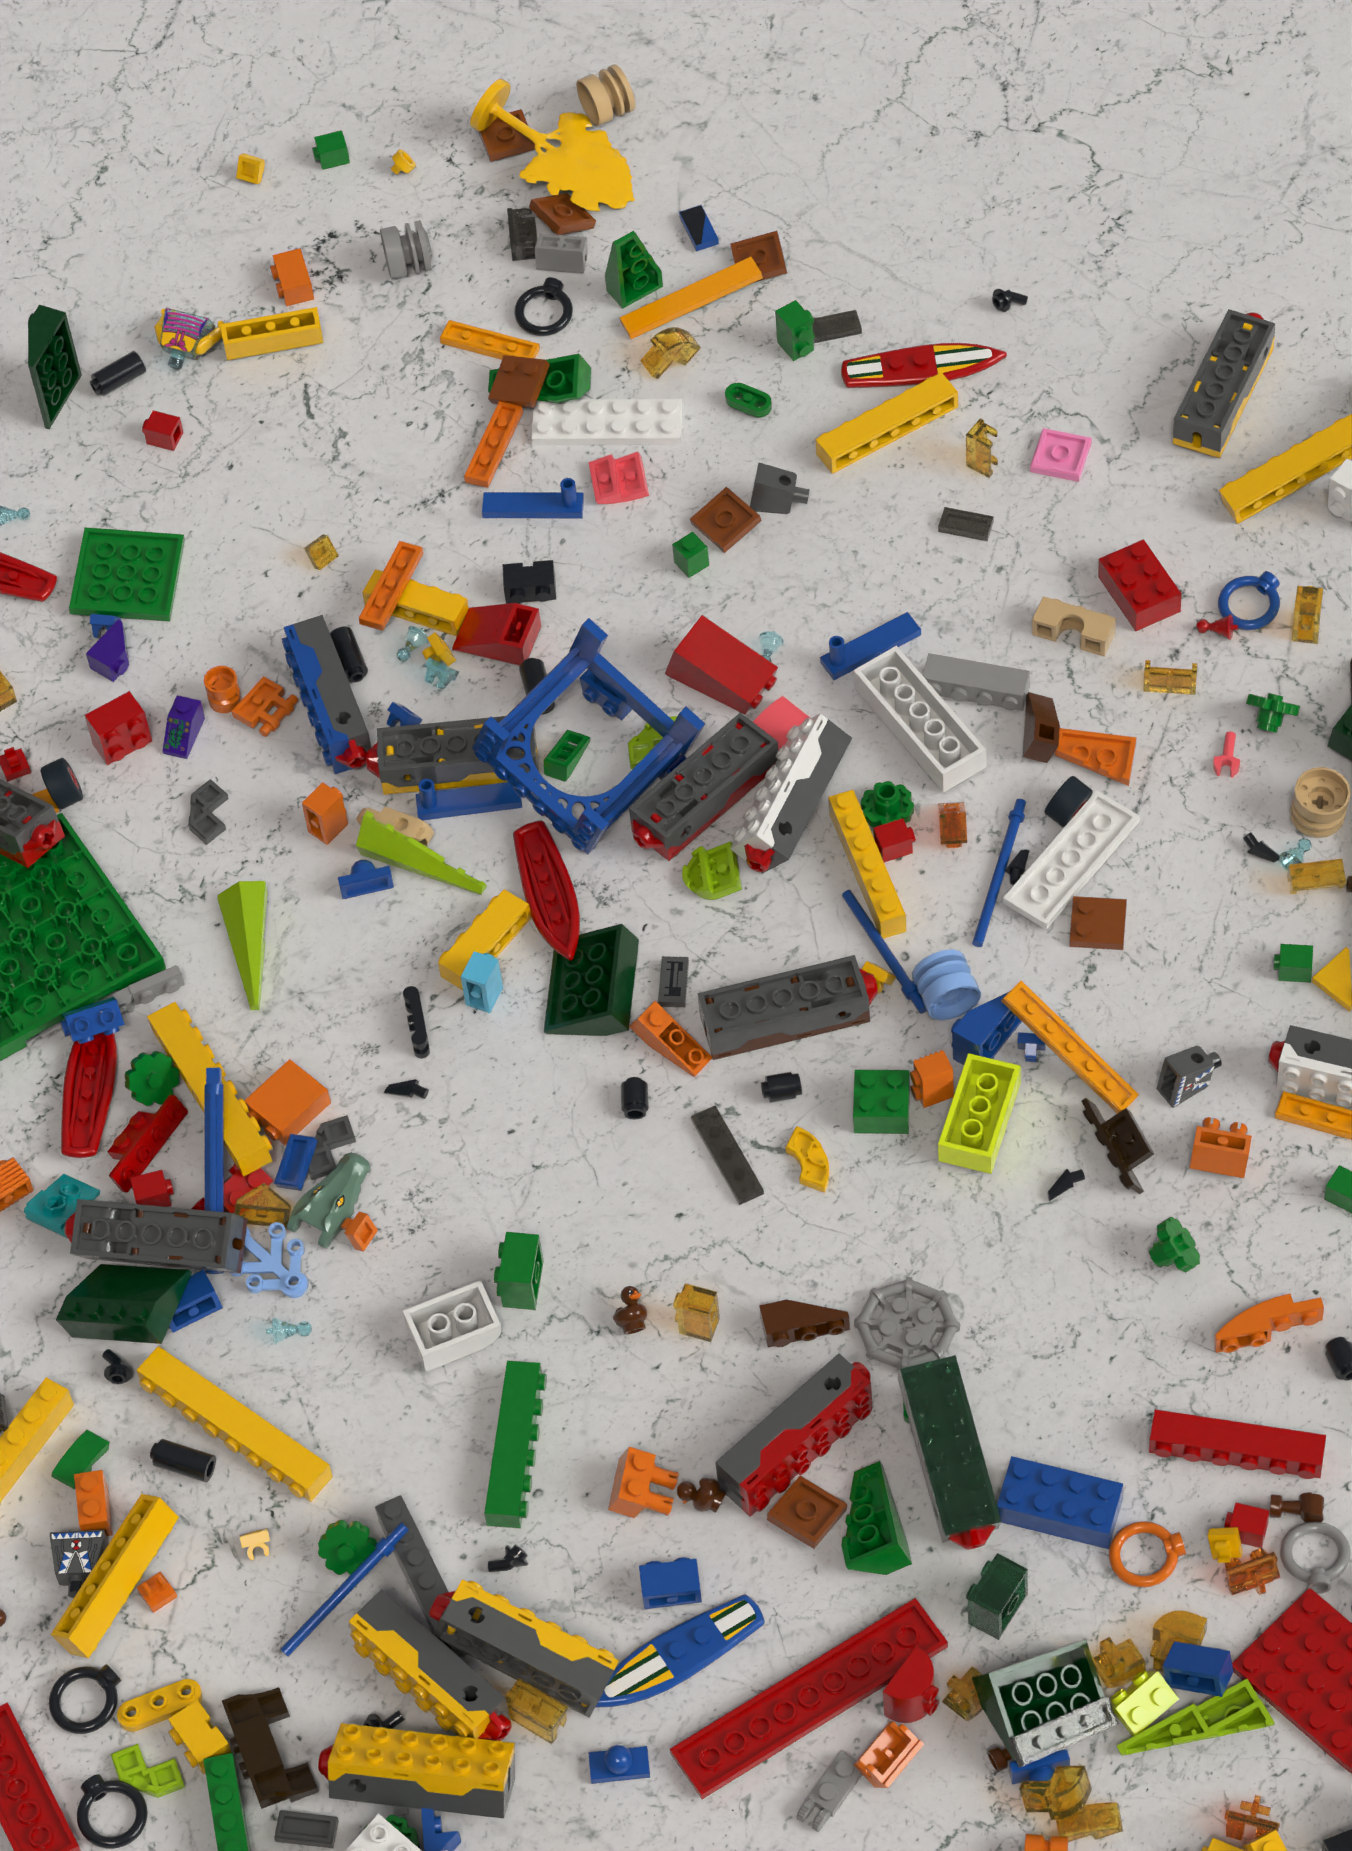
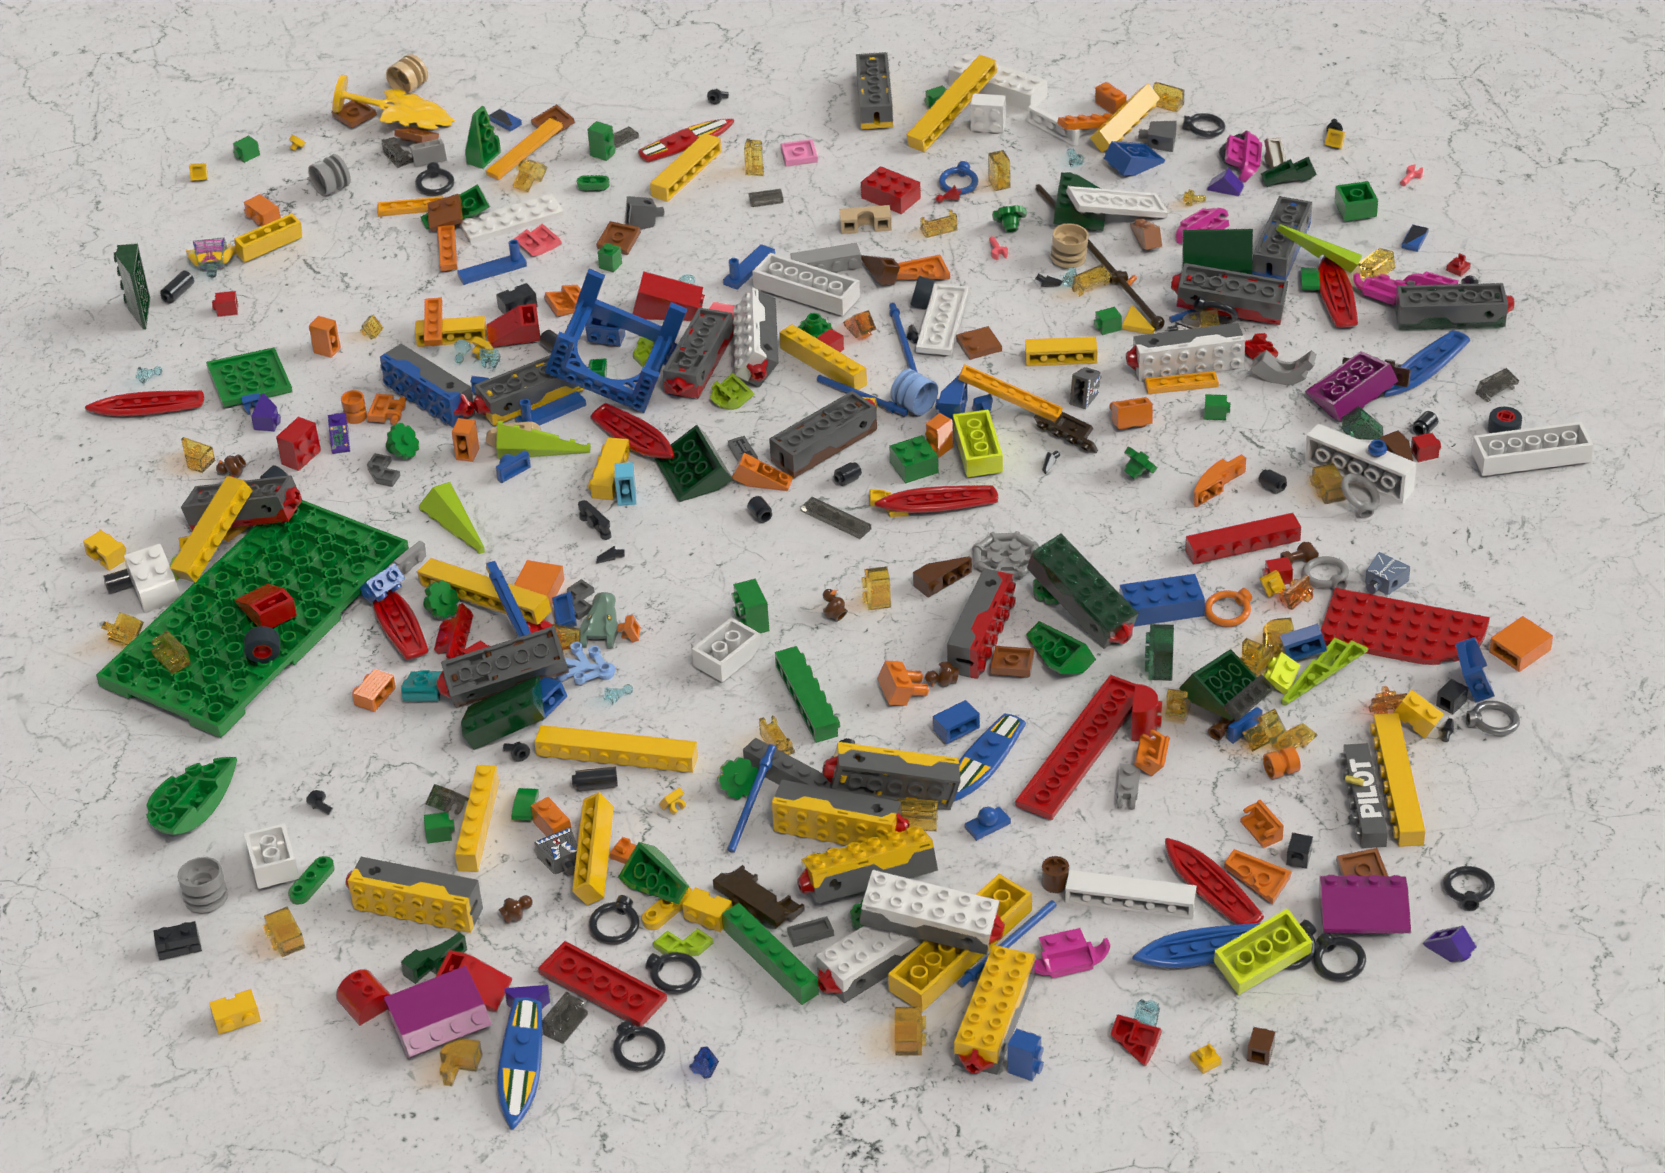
camera: 30 degrees left, 15 degrees down
(25, 726) = (231, 464): none -> reddish brown animal
(164, 1647) = (653, 874): none -> green wedge
(247, 549) = (324, 336): none -> orange brick
(248, 779) = (402, 441): none -> green plant
(437, 1498) = (773, 735): none -> clear yellow hinge
(600, 603) = (563, 301): none -> orange slope
(876, 1186) = (939, 498): none -> red piece
(1196, 991) = (1061, 351): none -> yellow brick
(1307, 424) = (933, 95): none -> green brick

